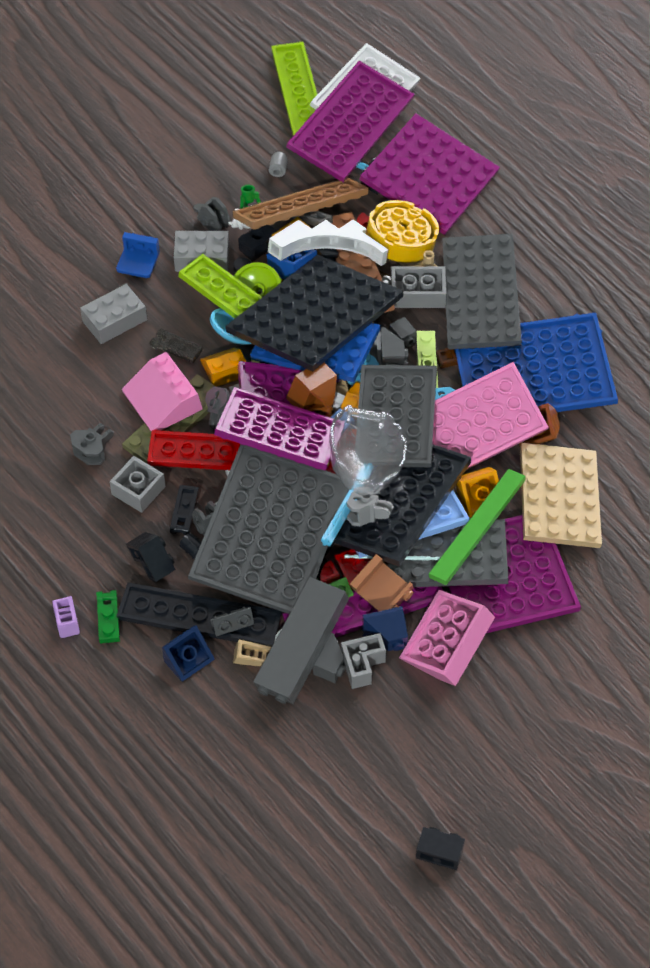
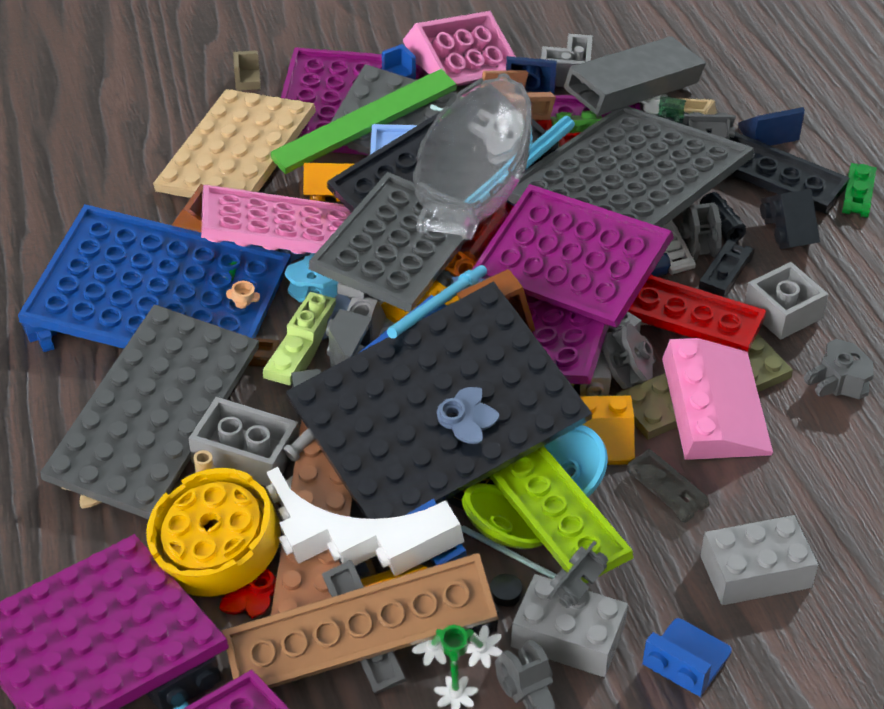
camera: 160 degrees left, 10 degrees down
(203, 247) = (586, 565): none -> dark grey hinge
(264, 626) = (672, 107): none -> clear green tile
(293, 297) = (471, 415): none -> sand blue plate
(338, 398) = (465, 280): none -> medium azure bar
(476, 368) = (242, 294): none -> light nougat plate
(486, 597) = (399, 61): none -> blue panel
(601, 572) = (246, 70): none -> dark tan panel

